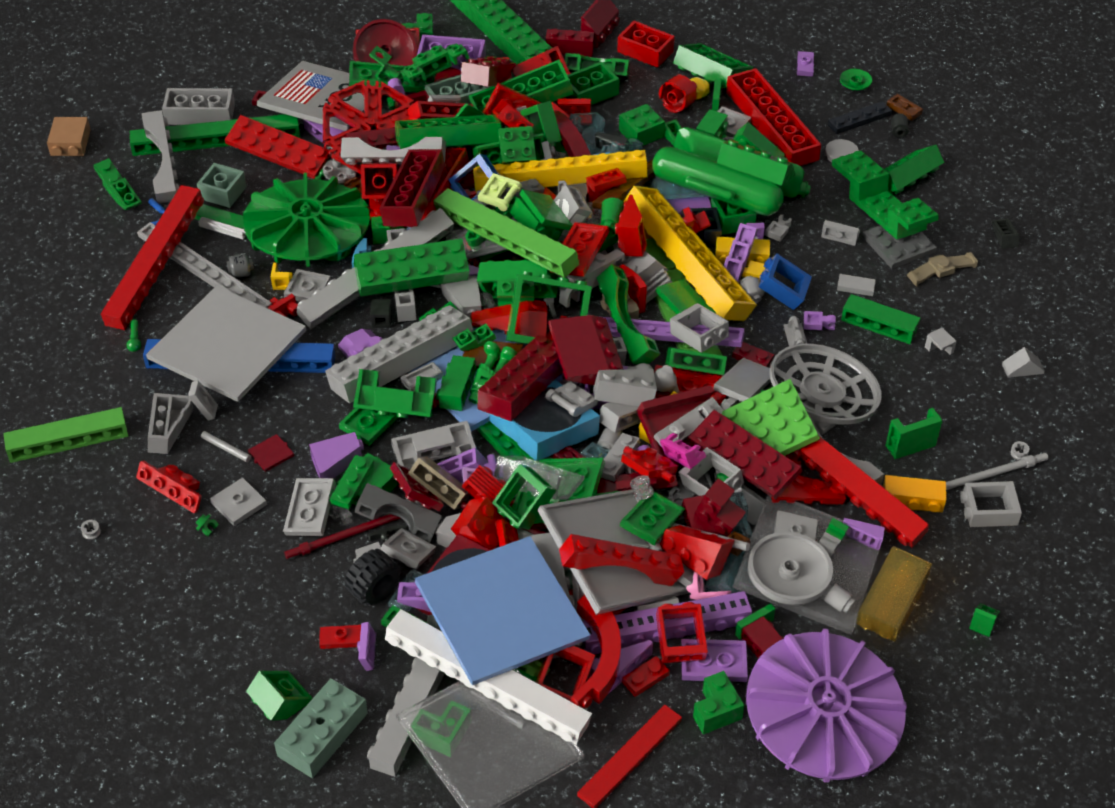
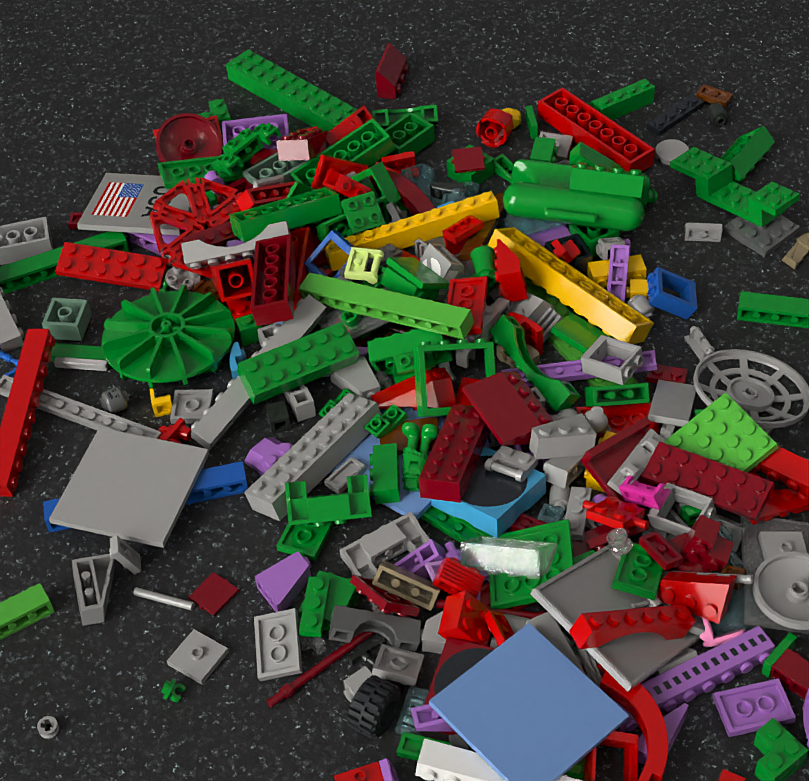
camera: 10 degrees left, 0 degrees up
(134, 343) = (27, 509): green bar -> none
(172, 484) = (120, 654): red bracket -> none
(385, 68) = (197, 163): green bracket -> none
(512, 487) = (499, 555): green window -> none
(571, 41) = (371, 97): dark red brick -> none
(639, 117) = (468, 159): none -> dark red piece
(645, 44) = (444, 85): red brick -> none
(645, 676) = (690, 742): red plate -> none
(676, 504) = (660, 550): none -> dark red plate
(681, 653) = (733, 680): red window -> none
(708, 63) = (512, 92): green slope -> none
(734, 224) = (604, 246): none -> light grey bracket
(778, 229) = (642, 241): light grey plate -> none
(805, 63) = (603, 73): medium lavender plate -> none
(813, 93) = (625, 99): none -> green slope
(816, 320) = (716, 326): medium lavender plate -> none
(856, 79) = (659, 77): green dish -> none
(856, 285) = (738, 280): light grey tile -> none

